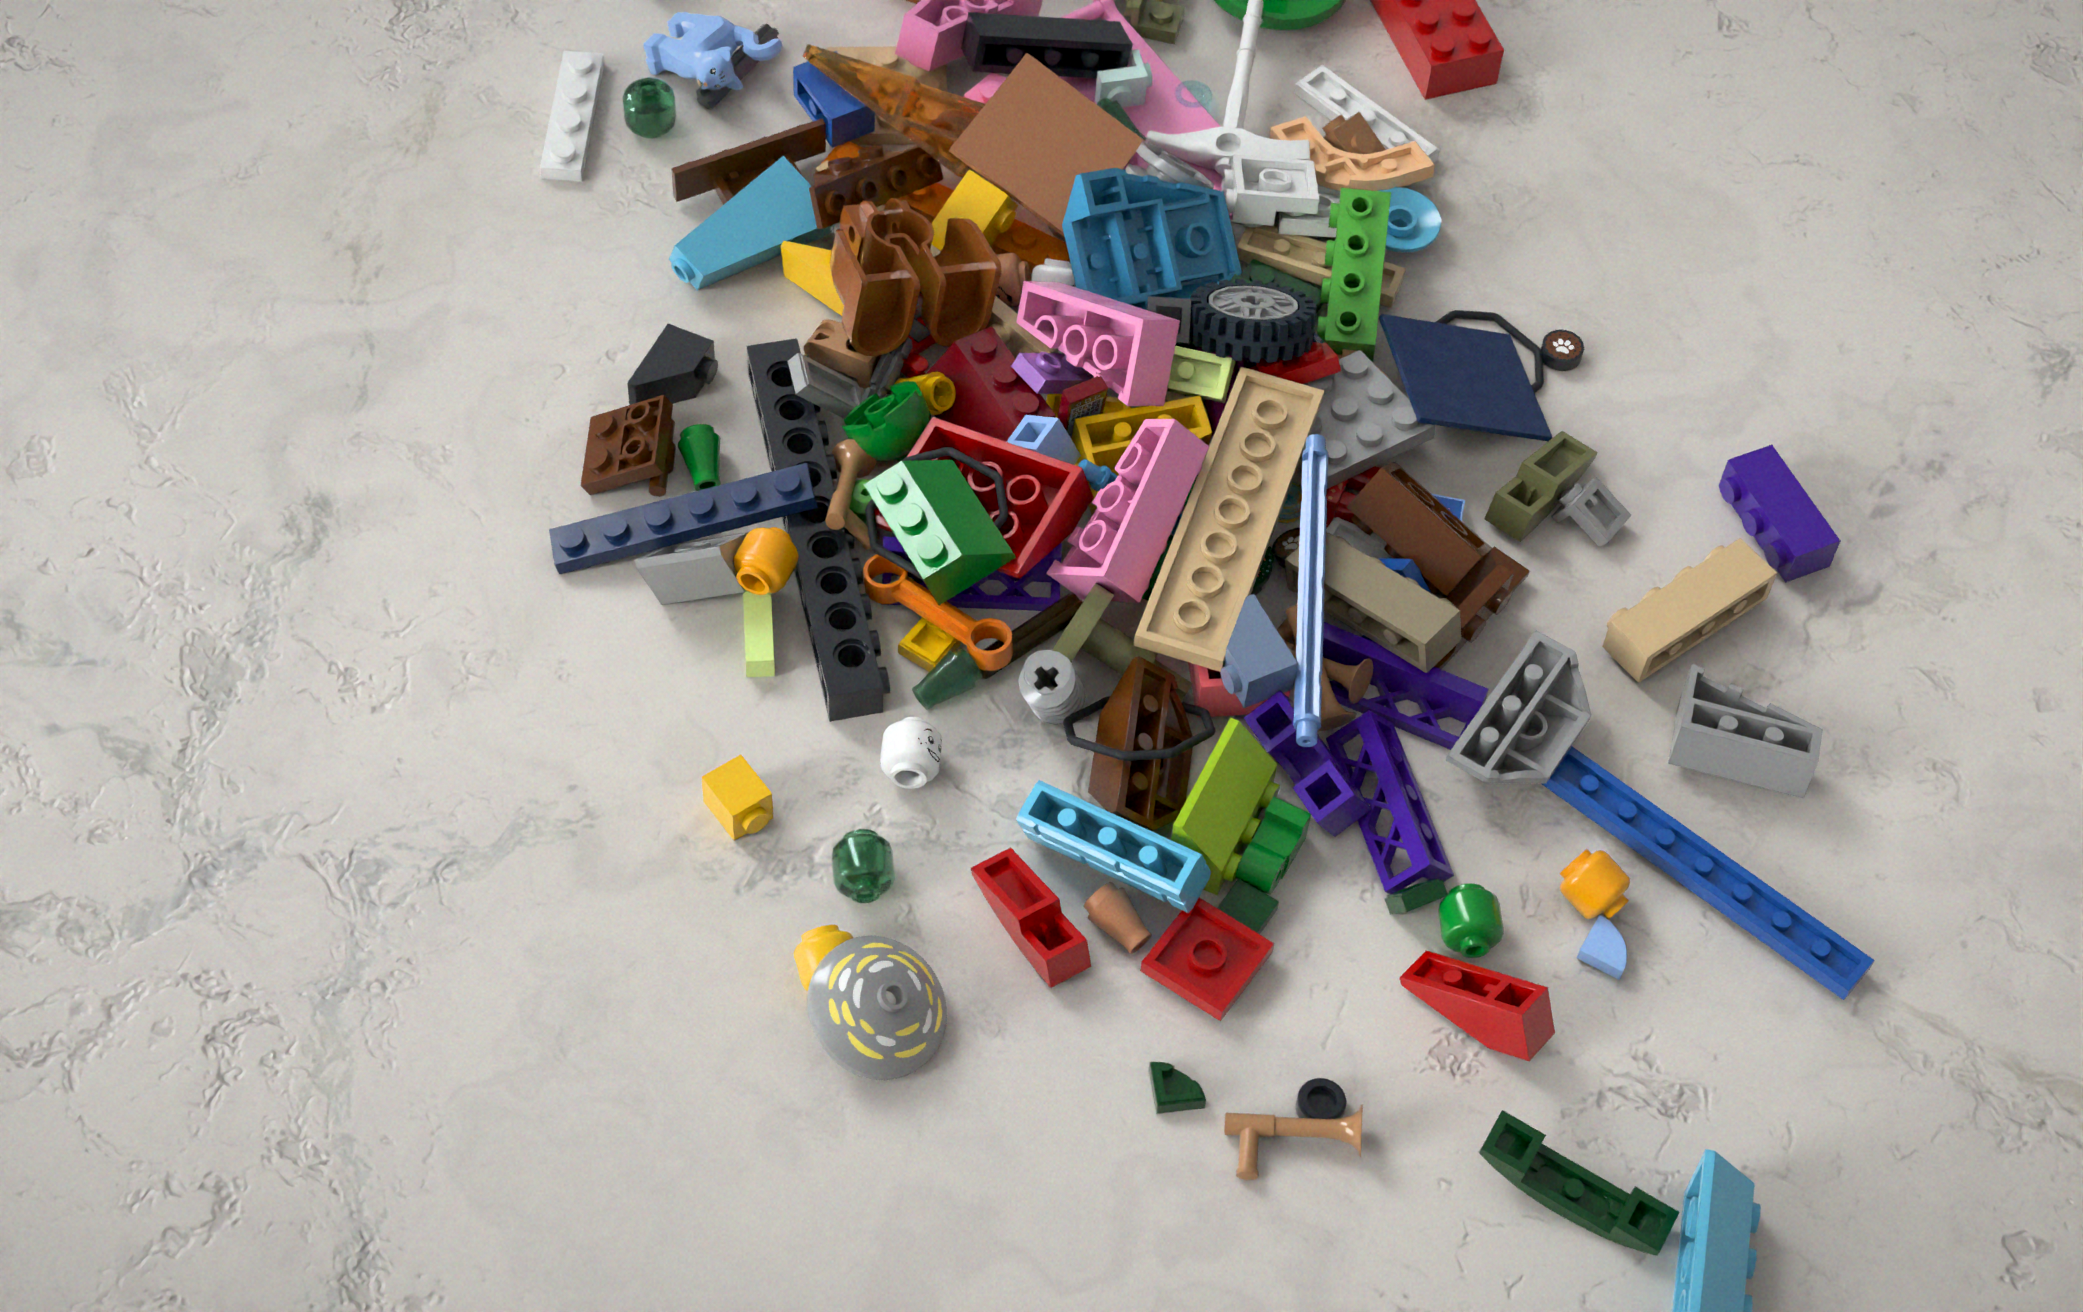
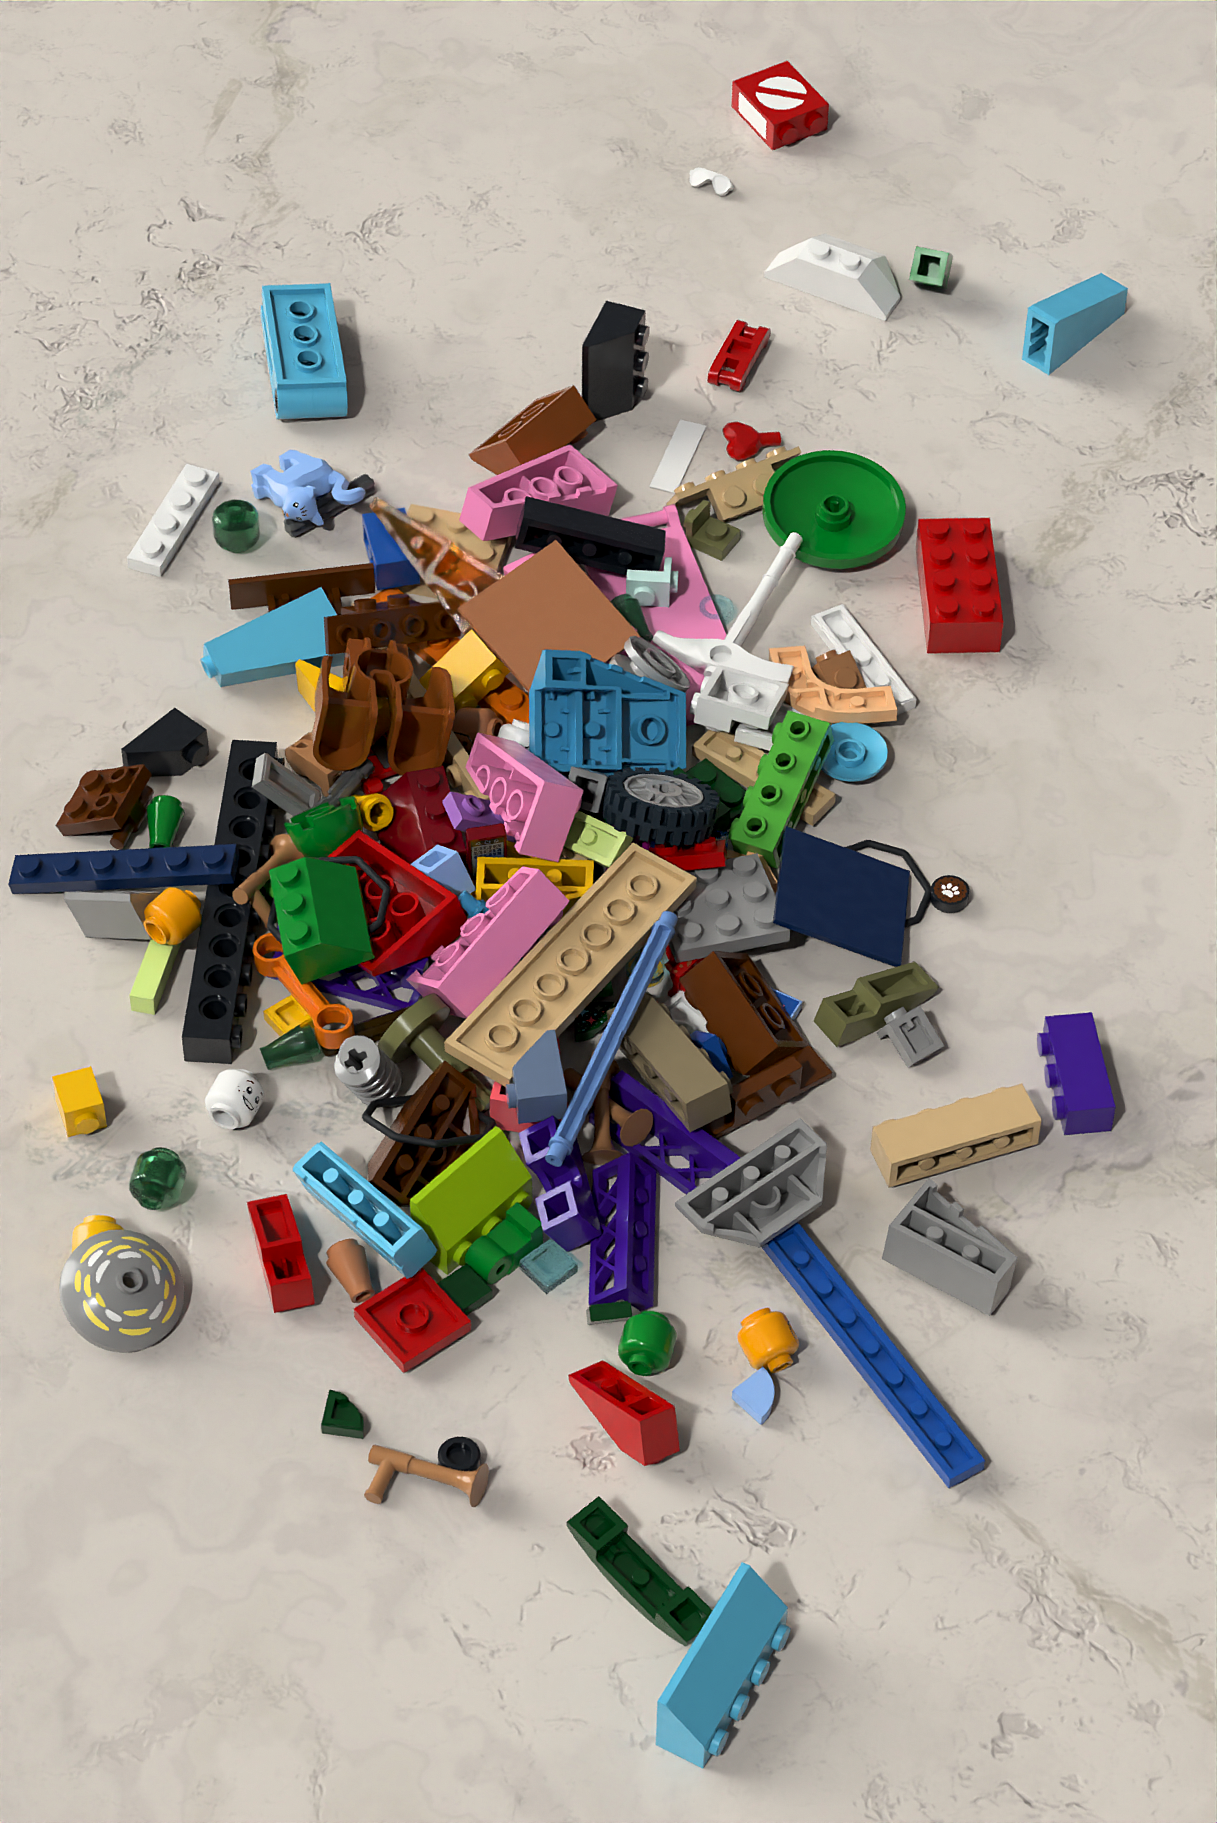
camera: 20 degrees right, 5 degrees down
(1323, 858) = (548, 1266): none -> clear light blue tile

